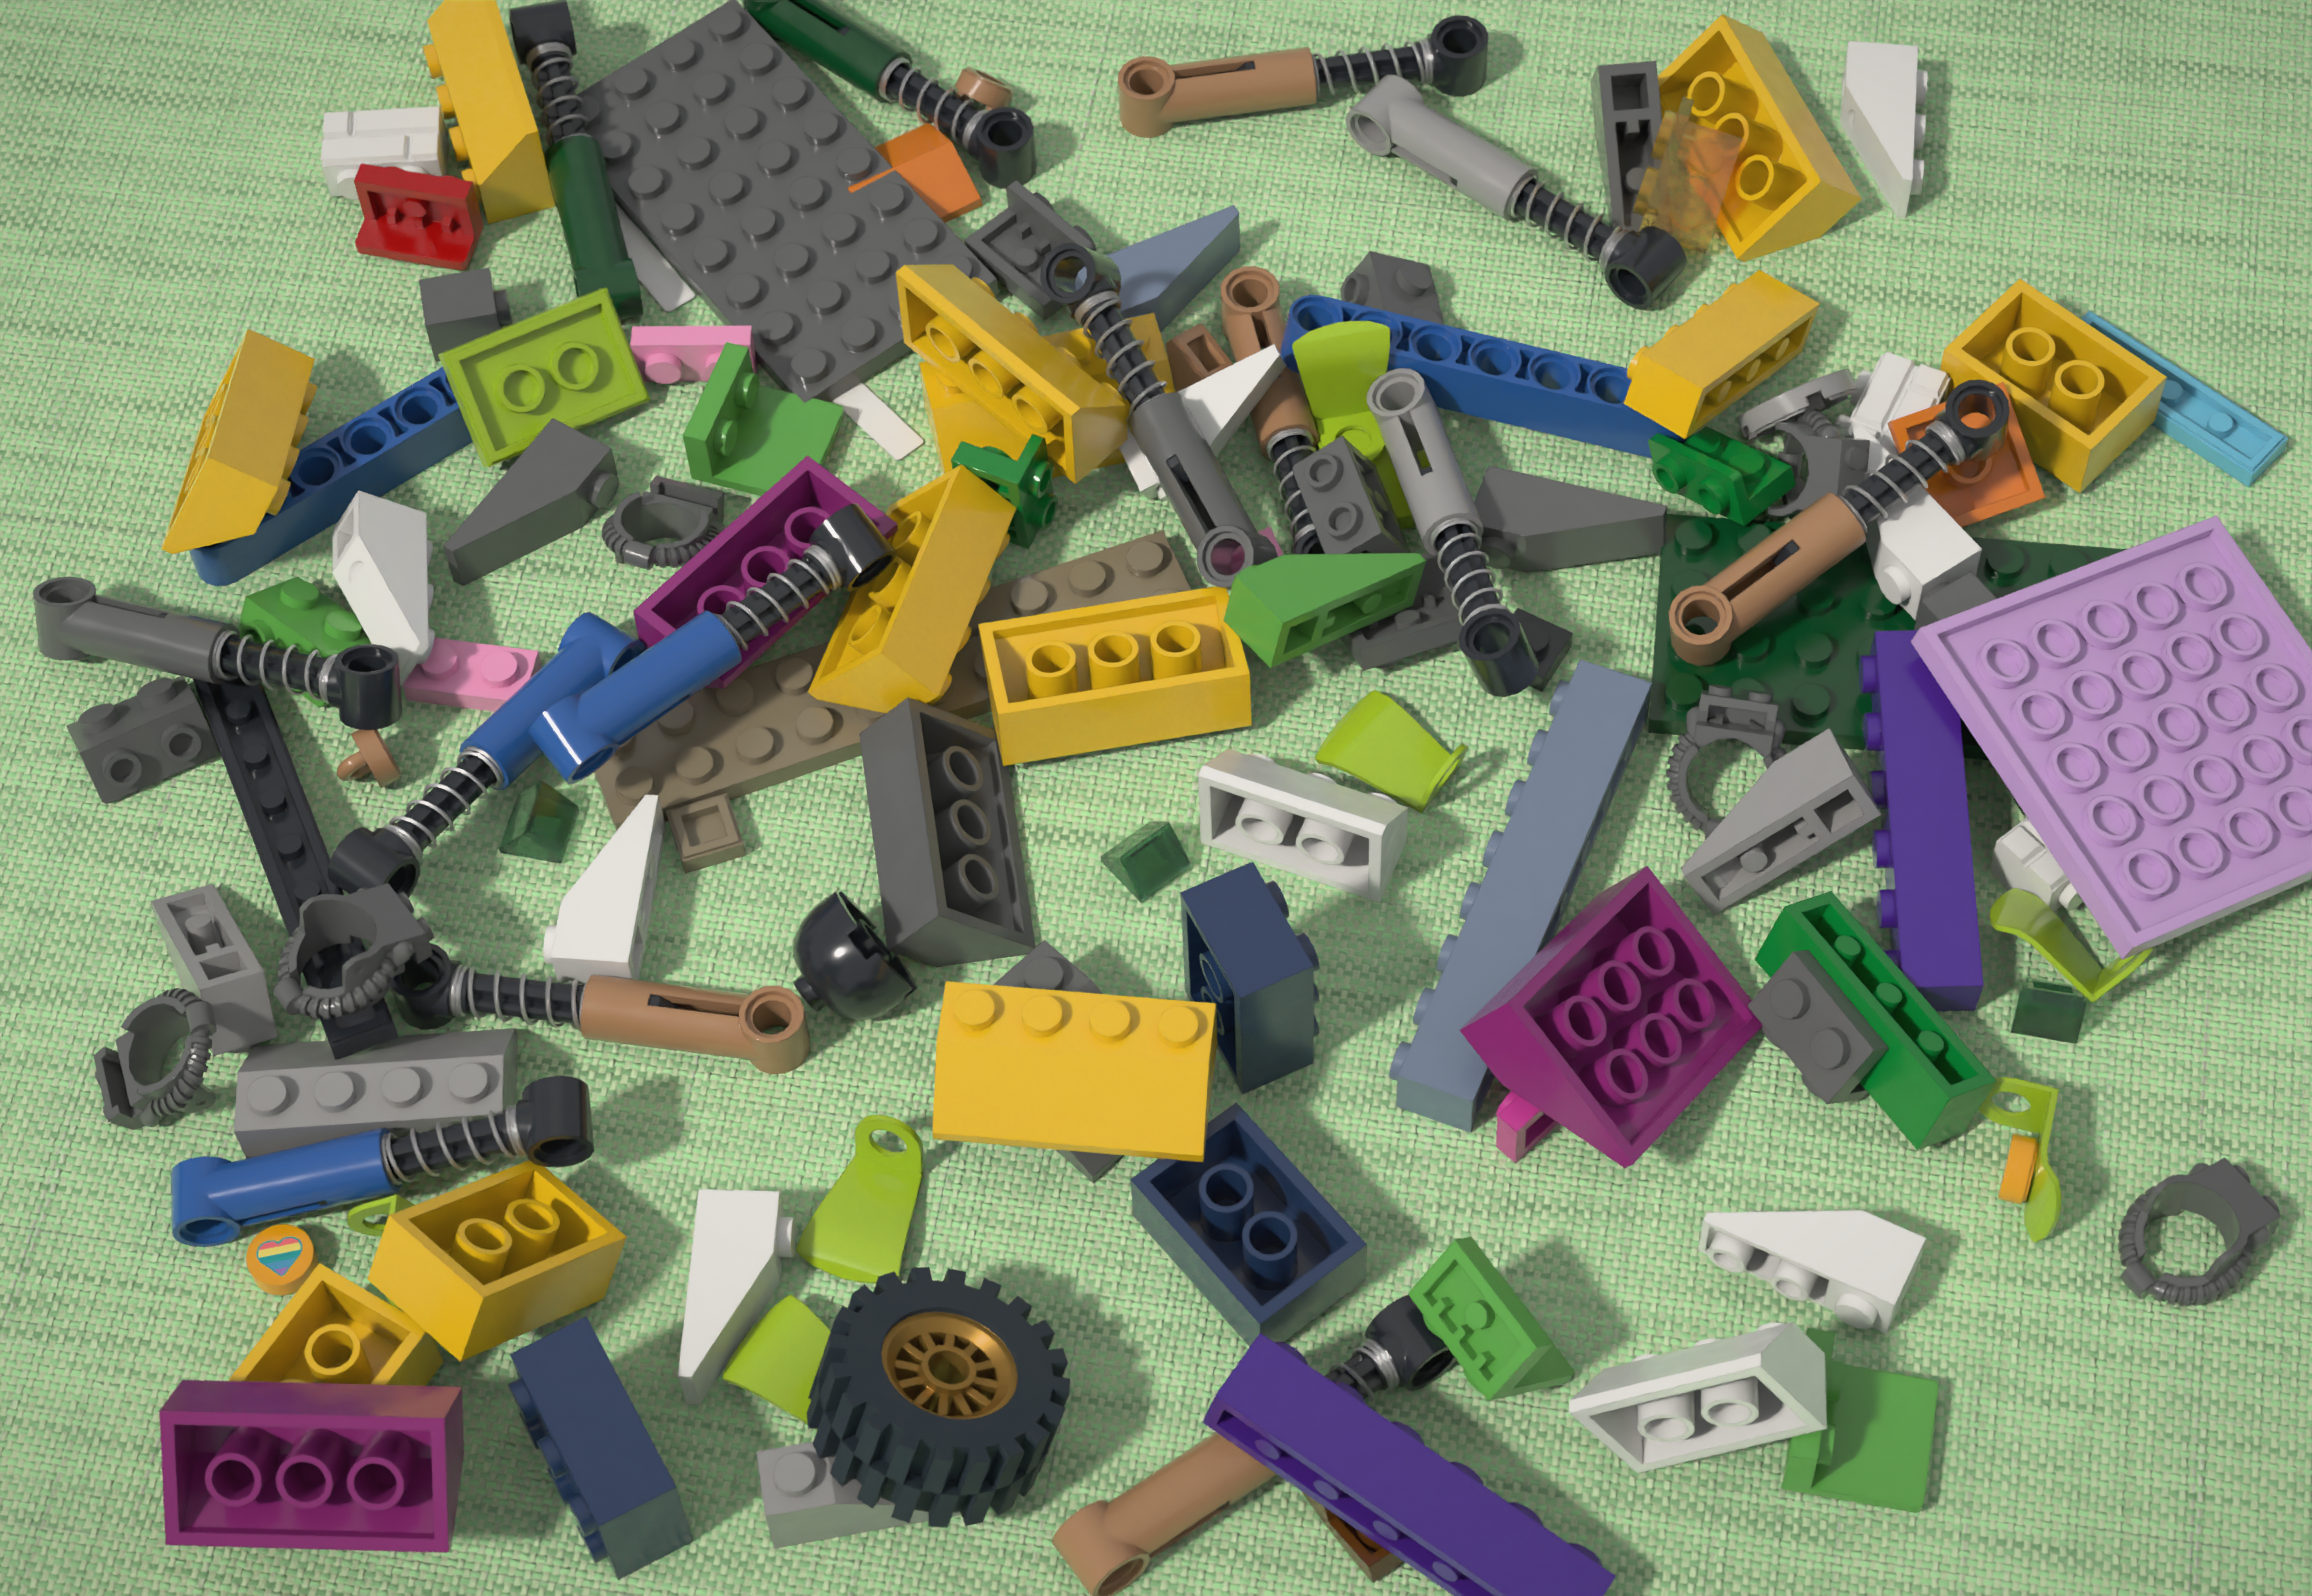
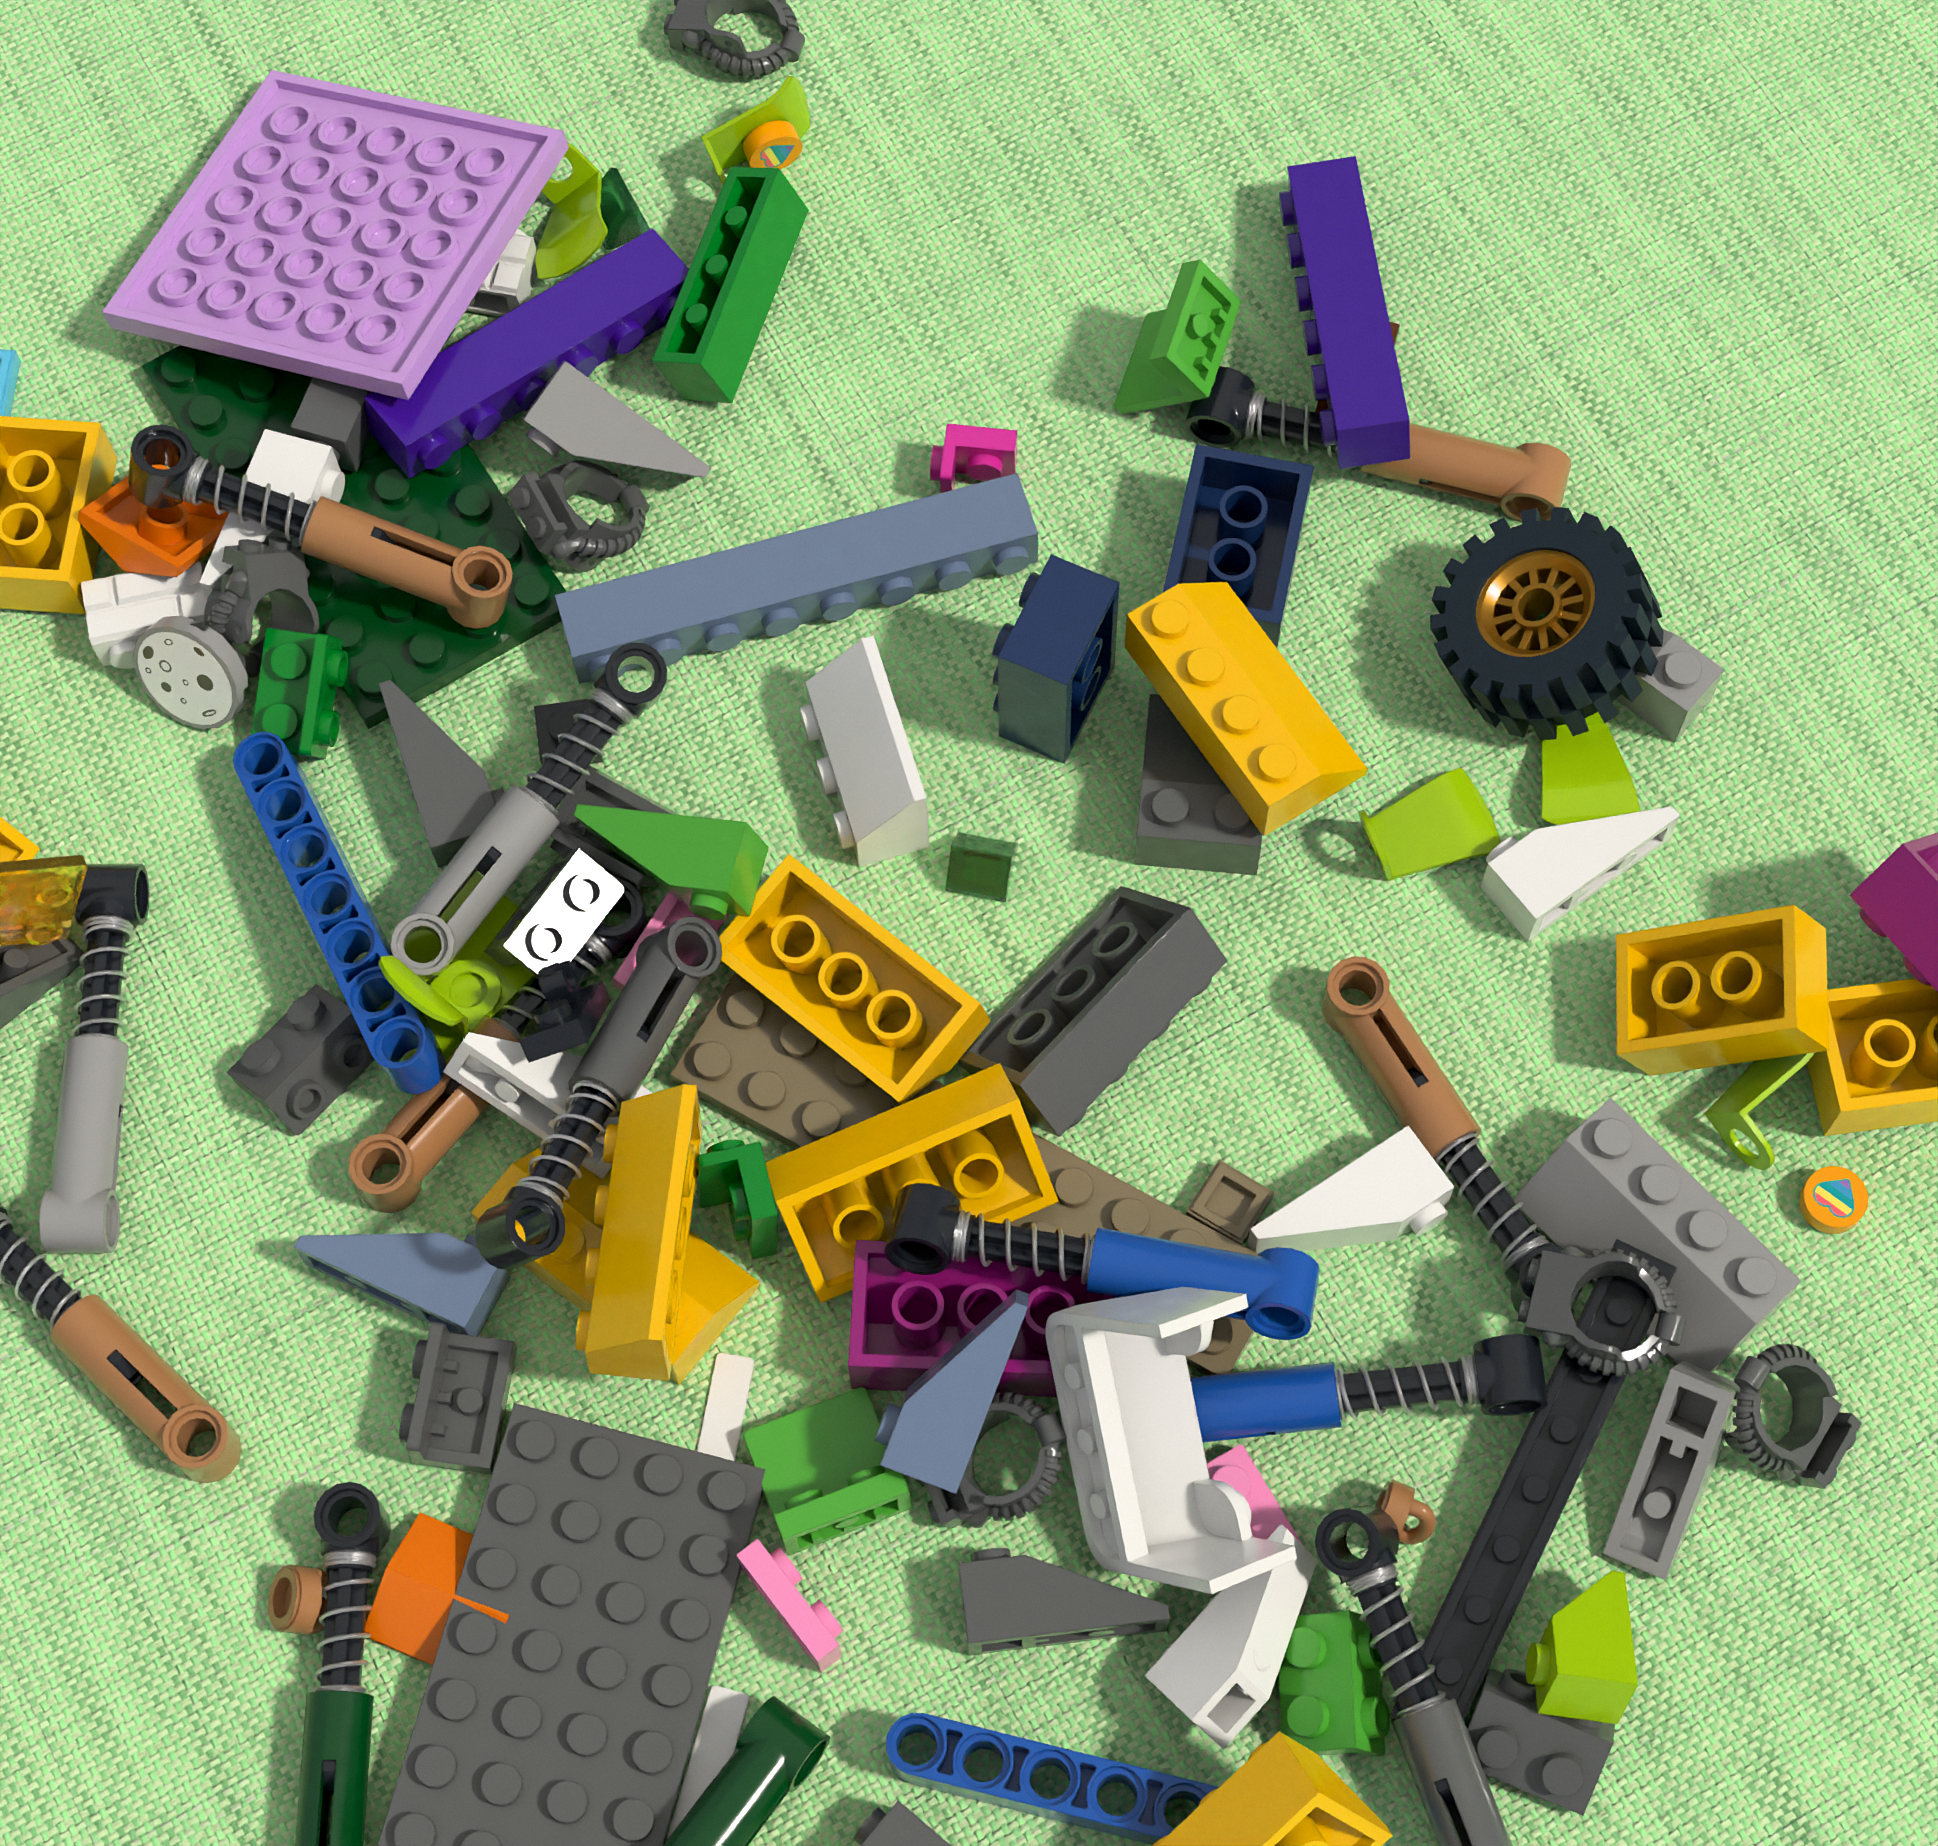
camera: 130 degrees left, 10 degrees up
(149, 776) = (1587, 1656): none -> lime slope
(221, 1196) = (1839, 1274): piece -> none
(540, 824) = (1339, 1335): clear green slope -> none
(552, 365) = (930, 1693): lime tile -> none
(585, 593) = (1141, 1444): none -> white windscreen
(598, 1450) = (1779, 815): dark blue brick -> none
(712, 485) = (948, 1404): none -> sand blue slope
(847, 962) = (1263, 979): black cylinder -> none
(1194, 357) = (488, 1151): medium nougat slope -> none
(1241, 437) = (566, 1015): none -> black plate
(1390, 751) = (744, 758): lime piece -> none
(1616, 1020) = (874, 429): magenta slope -> none
(1707, 1398) = (1126, 176): white slope -> none
(1719, 353) = (187, 743): yellow brick -> none
(1818, 1029) = (771, 307): dark grey bracket -> none
(1829, 1257) = (935, 212): white slope -> none
(1873, 1438) = (1051, 124): bright green bracket -> none

